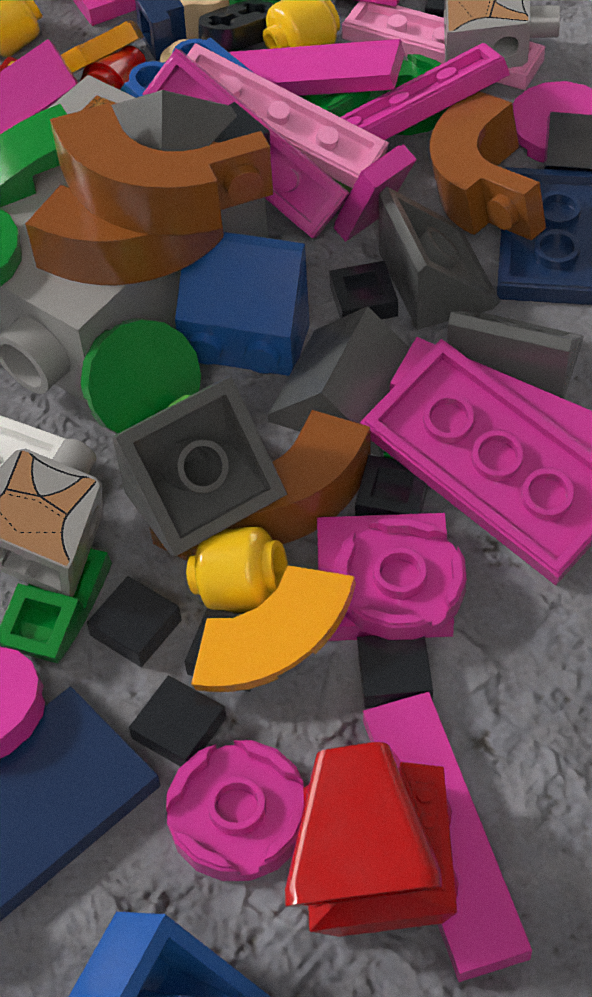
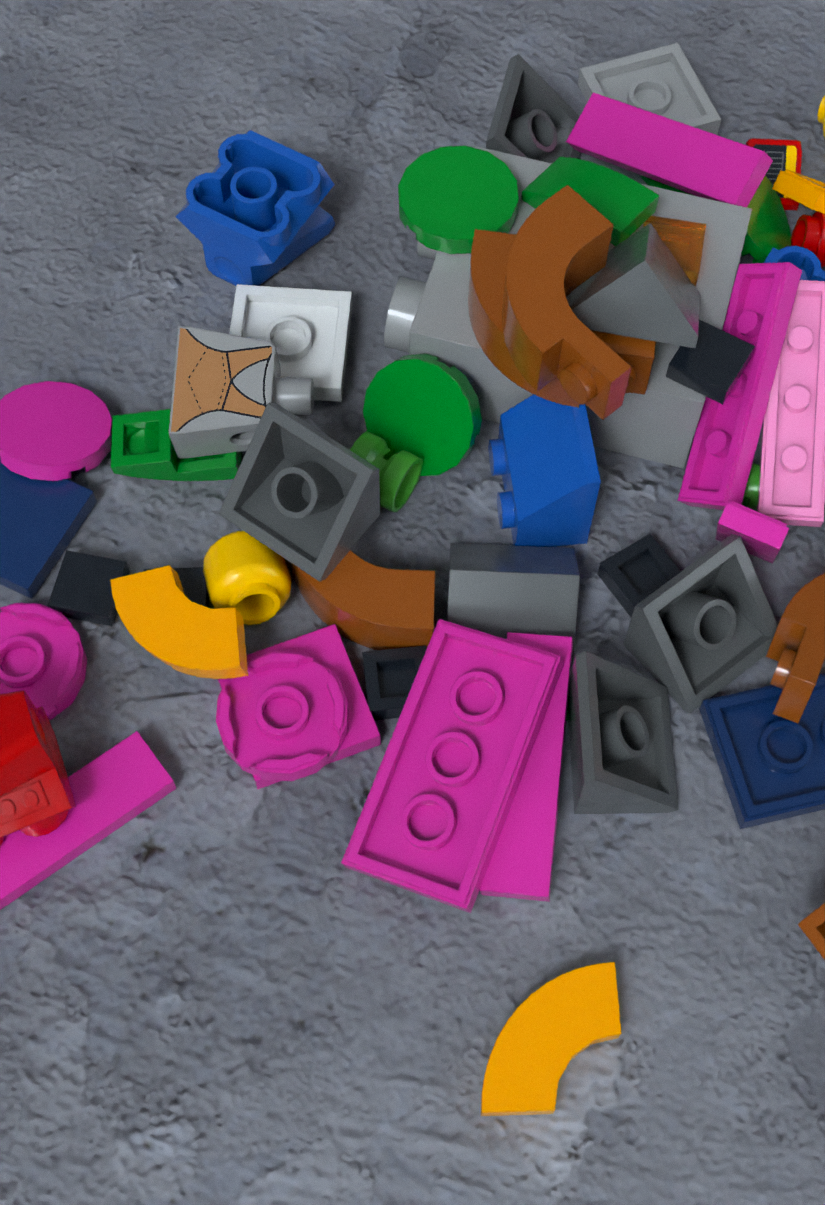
camera: 65 degrees right, 10 degrees up
(134, 621) = (180, 517): black tile -> none
(393, 669) = (193, 746): black tile -> none

